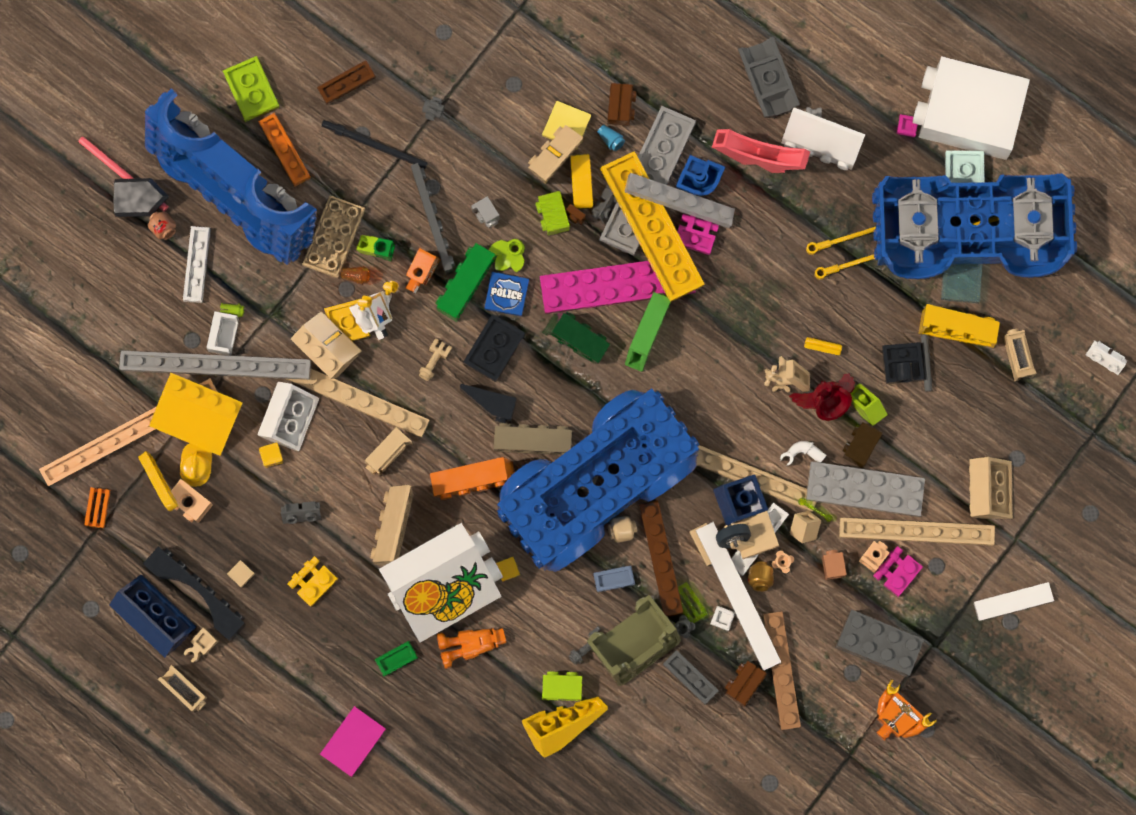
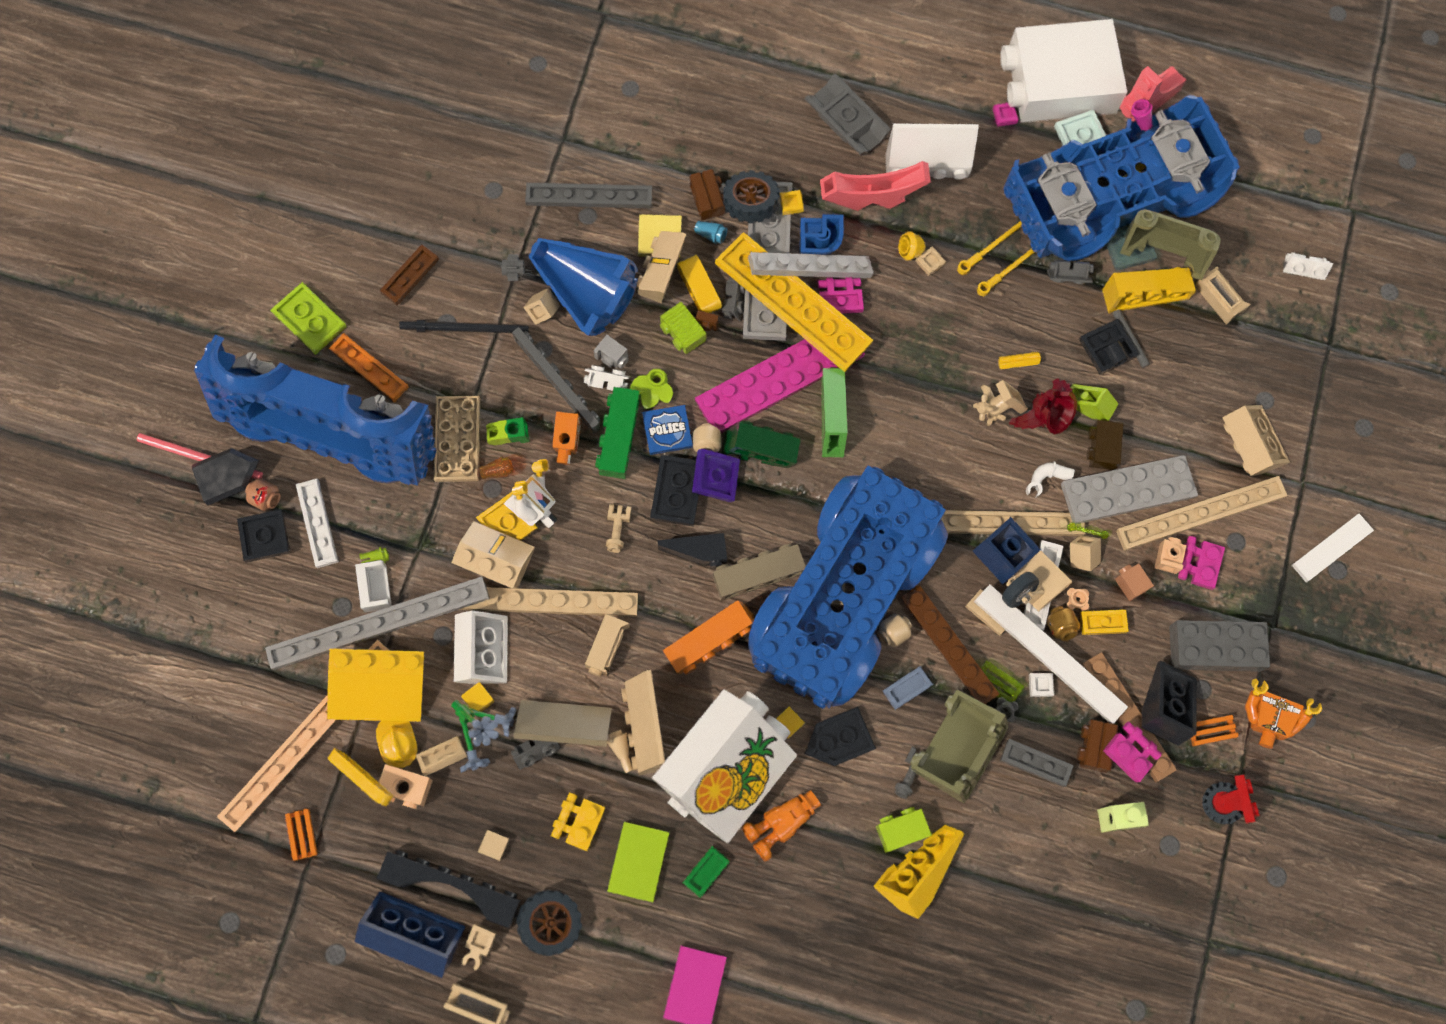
camera: 25 degrees left, 5 degrees down
(151, 259) = (263, 536): none -> black plate
(226, 489) = (441, 756): none -> tan plate
(245, 637) = (566, 938): none -> black wheel
(263, 482) = (481, 732): none -> sand blue plant
(330, 500) = (563, 723): none -> dark tan tile
(347, 630) = (638, 862): none -> lime tile
(367, 535) = (619, 744): none -> tan cone
(444, 150) = (542, 306): none -> tan panel
(468, 227) = (598, 376): none -> white hinge
(487, 145) = (586, 281): none -> blue cone
(521, 68) = (588, 195): none -> dark grey plate
(529, 348) = (716, 475): none -> dark purple plate
(534, 315) = (707, 438): none -> tan head
(543, 597) = (840, 738): none -> black tile
(650, 137) = (751, 186): none -> black wheel
(687, 138) = (791, 202): none -> yellow tile
(740, 746) = (1124, 817): none -> yellowish green torso
(763, 701) = (1128, 757): none -> dark pink plate
(773, 214) = (911, 246): none -> yellow cone
(786, 232) = (930, 261): none -> tan tile
(795, 588) = (1103, 622): none -> yellow plate
(818, 673) = (1171, 705): none -> black slope
(832, 768) = (1228, 802): none -> plate
(844, 700) = (1230, 726): none -> orange tile
(905, 291) = (1060, 271): none -> dark grey hinge
(973, 275) = (1174, 236): none -> olive windscreen
(1014, 175) = (1142, 113): none -> dark pink cone
(1038, 157) = (1153, 88): none -> coral arch

